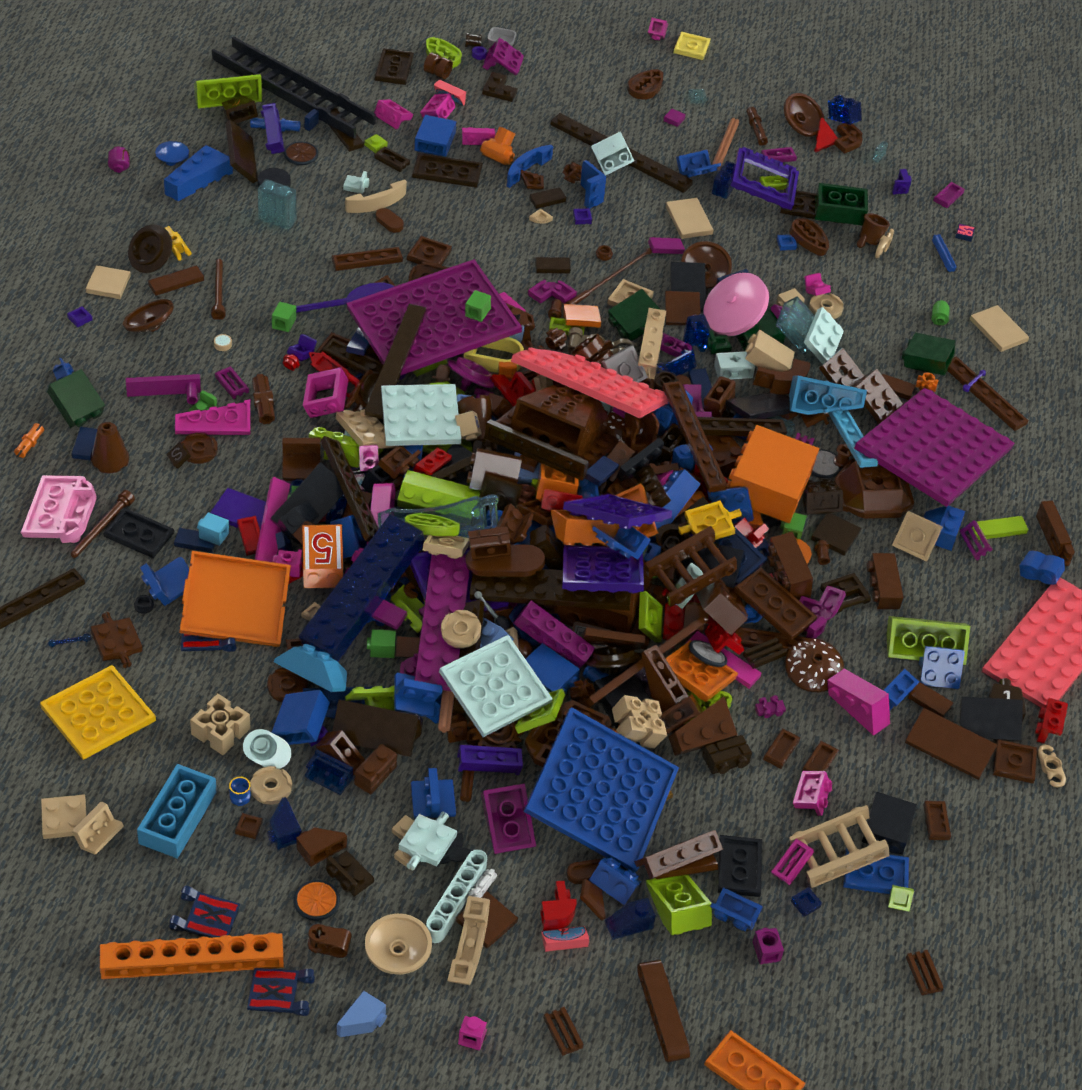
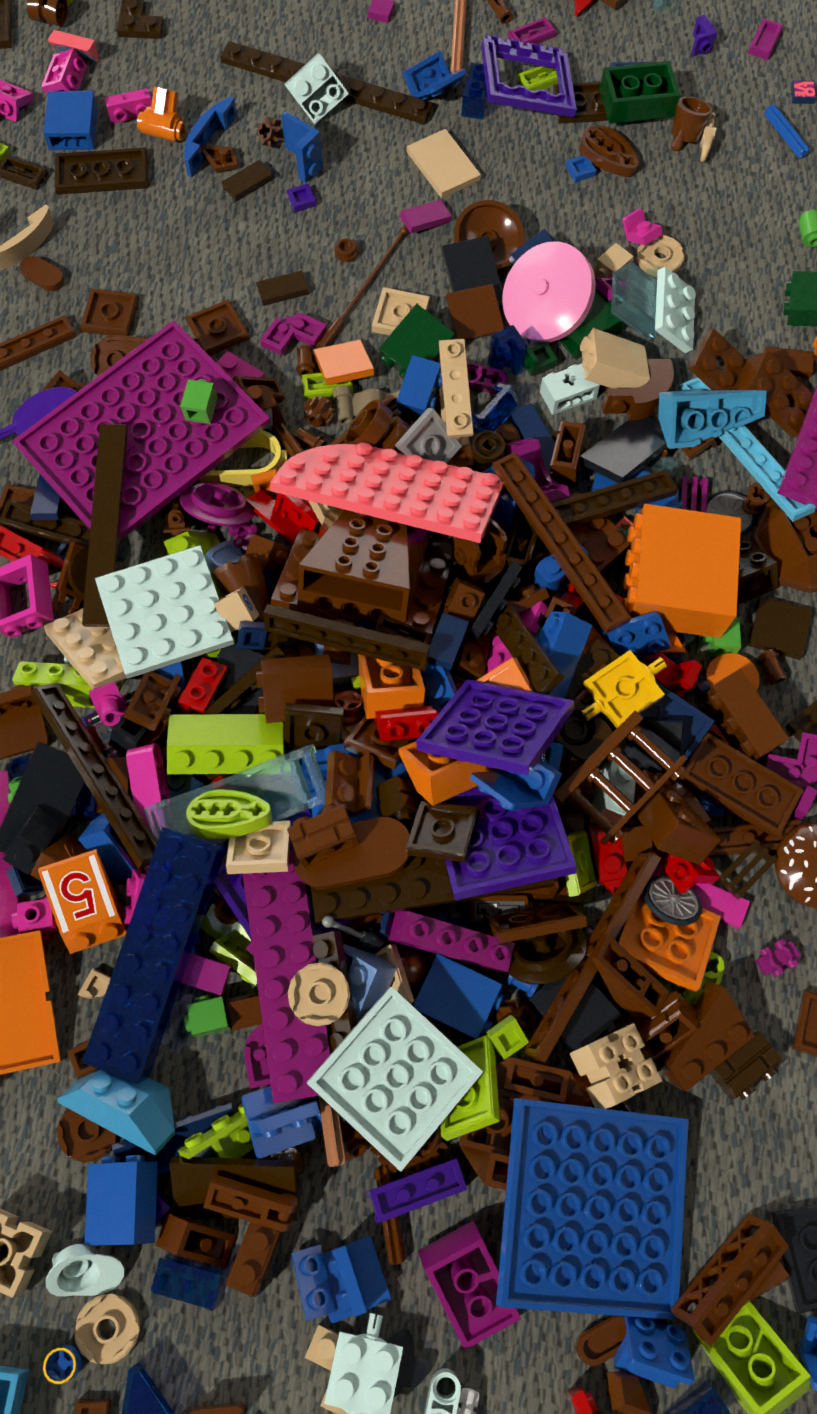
camera: 10 degrees left, 20 degrees up
(383, 732) = (251, 1203): none -> reddish brown plate
(408, 791) = (313, 1282): none -> blue hinge
(473, 441) = (251, 635): none -> dark blue tile
(503, 277) = (217, 327): none -> reddish brown tile
(540, 217) = (246, 213): tan tile -> none
(566, 557) = (443, 831): none -> dark brown tile
(574, 691) = (507, 1037): none -> lime plate
(629, 334) = (419, 386): none -> blue brick

